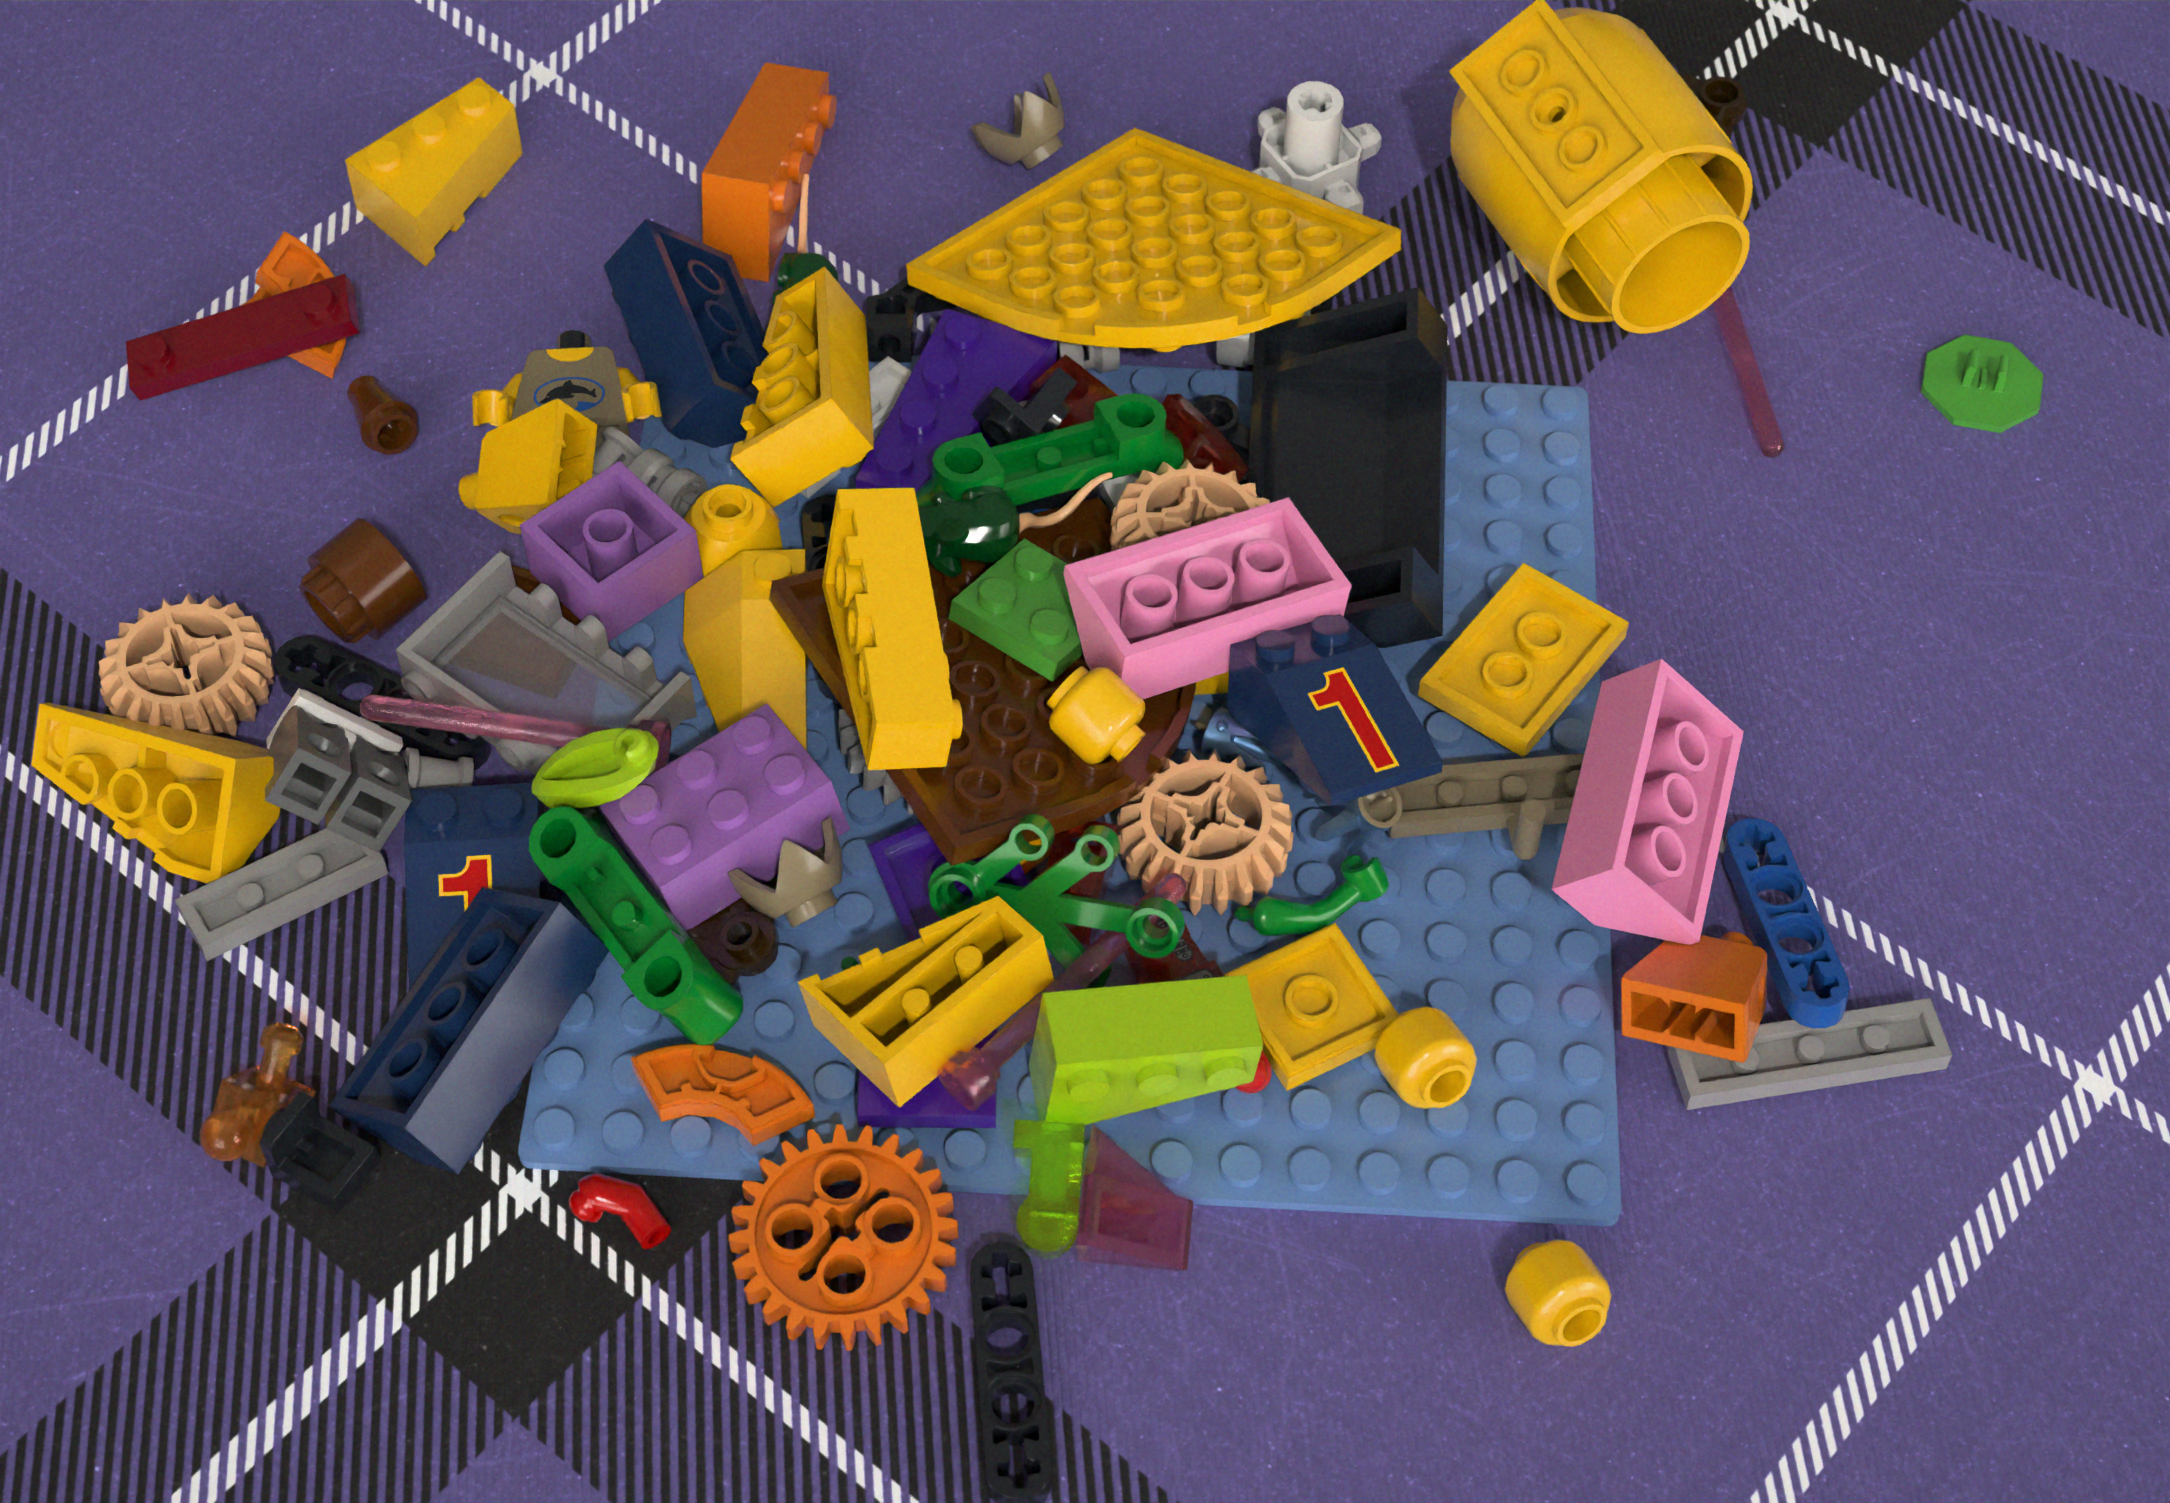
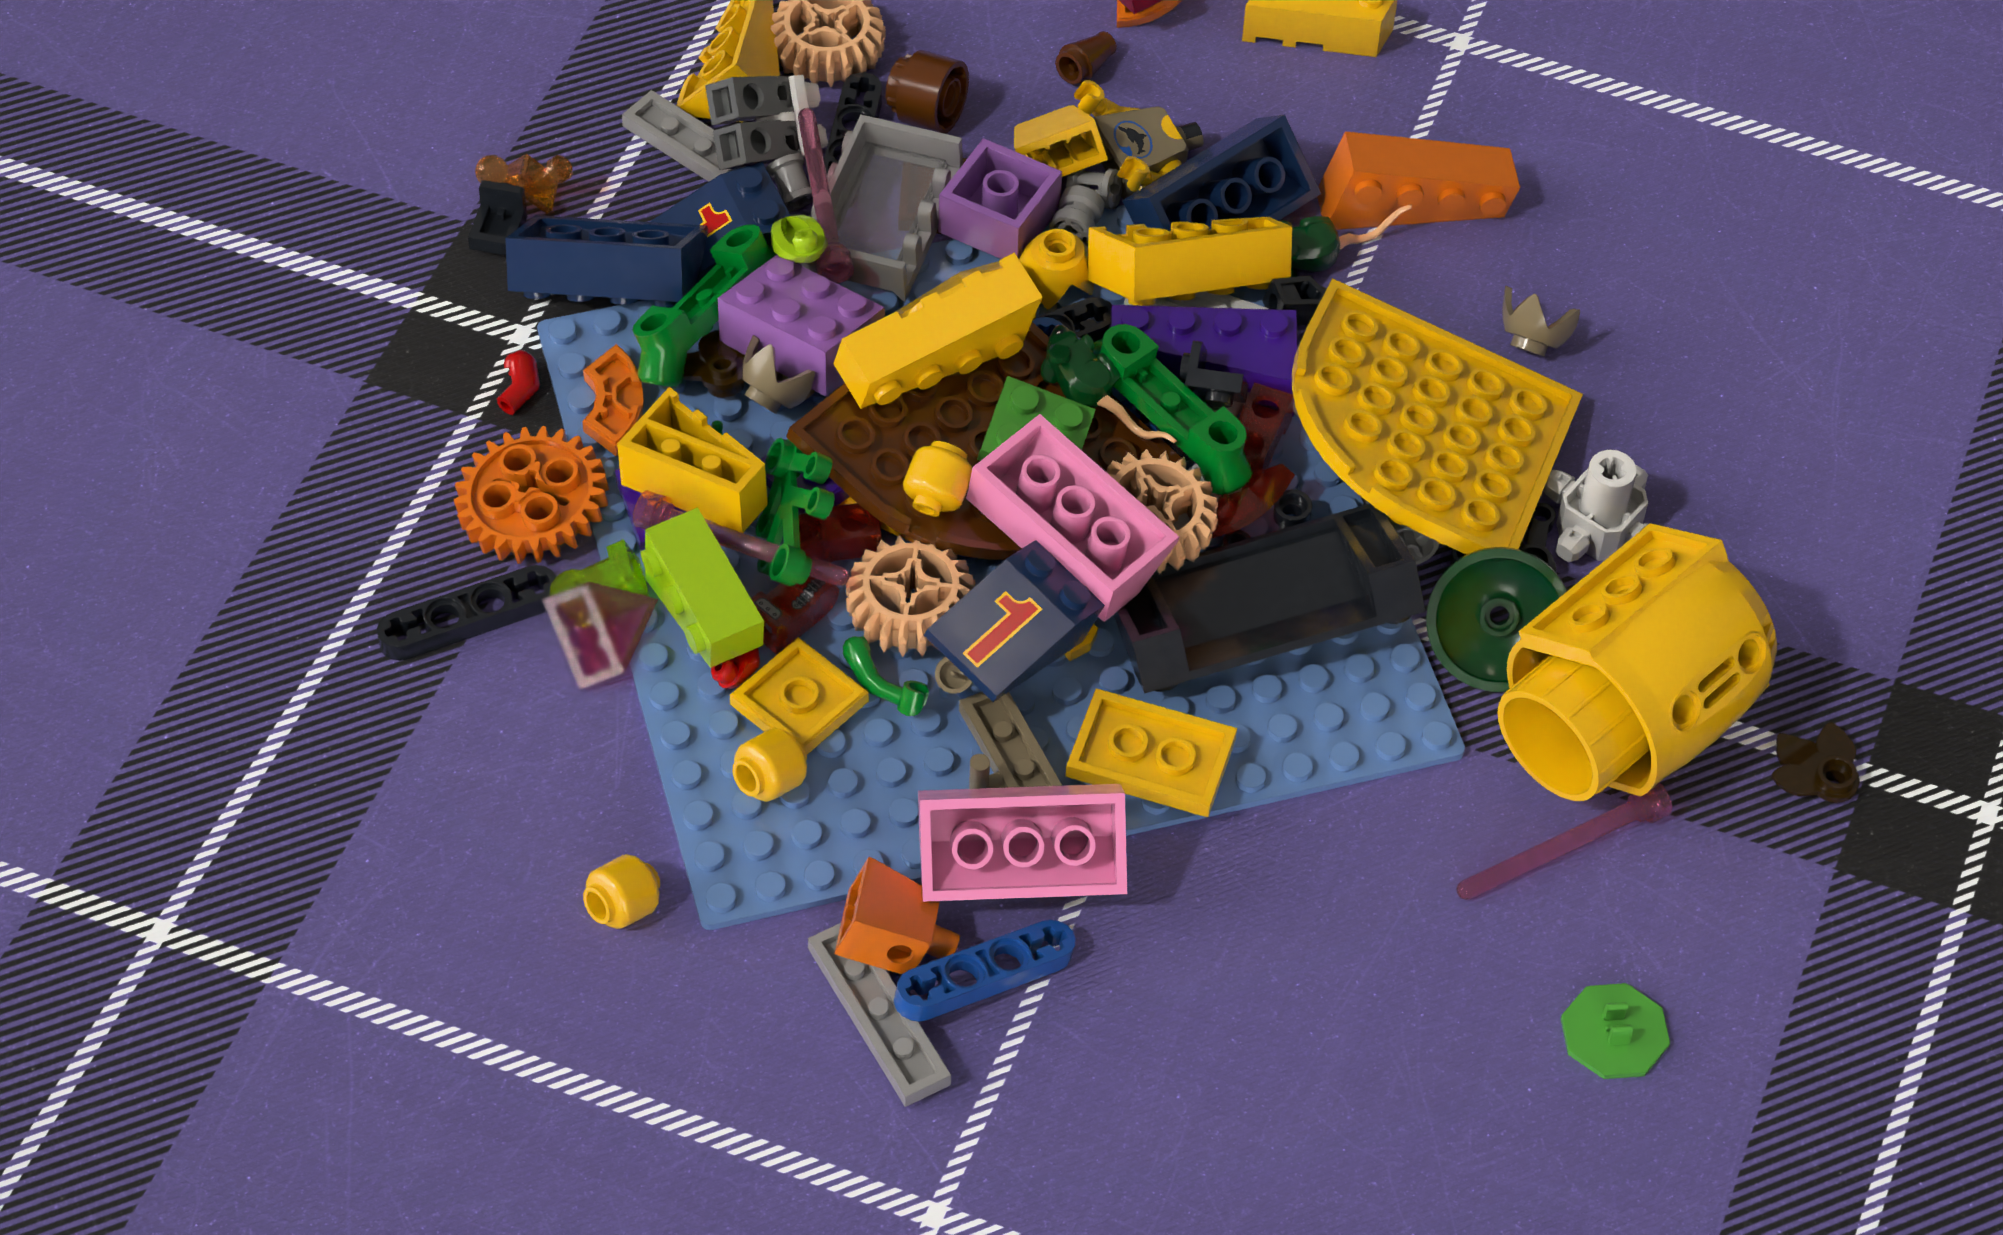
camera: 70 degrees right, 0 degrees up
(1461, 269) = (1460, 607): none -> dark green dish

